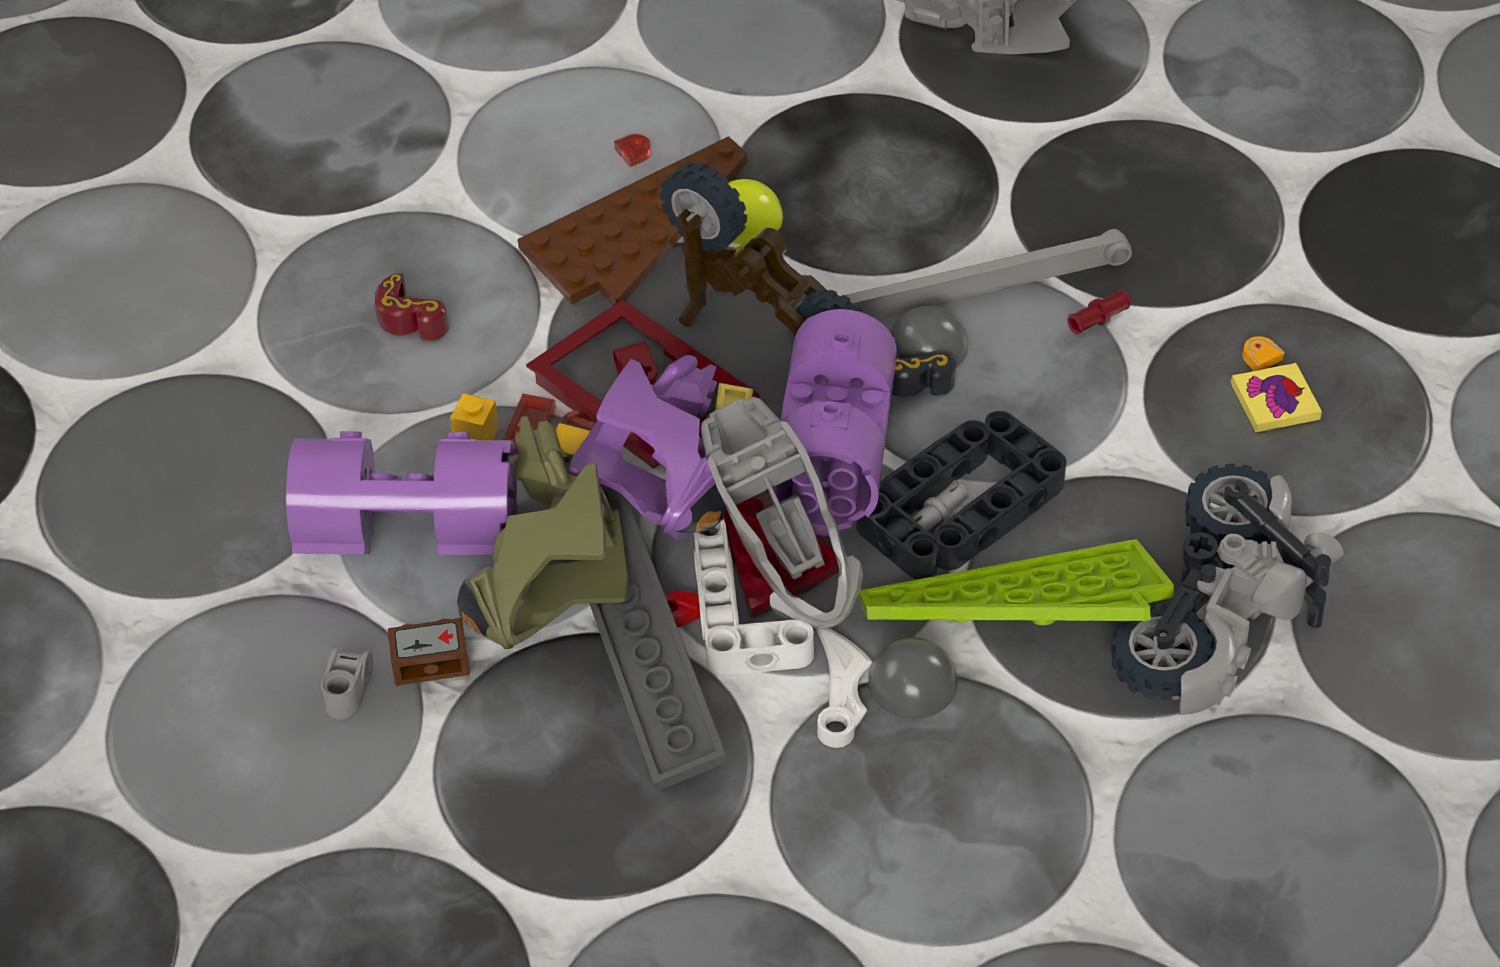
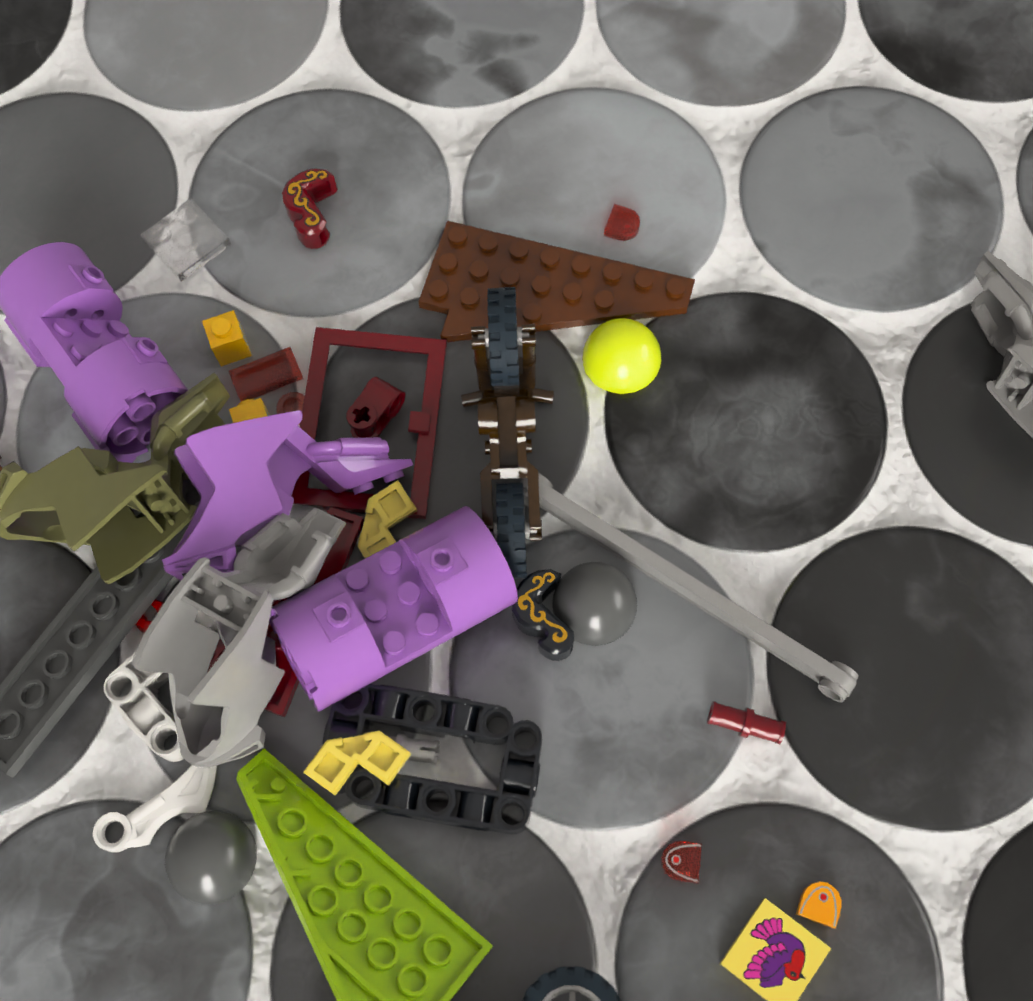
camera: 55 degrees right, 20 degrees up
(340, 406) = (186, 239): none -> clear plate
(929, 509) = (341, 756): none -> light yellow tile
(1167, 406) = (682, 861): none -> clear red tile

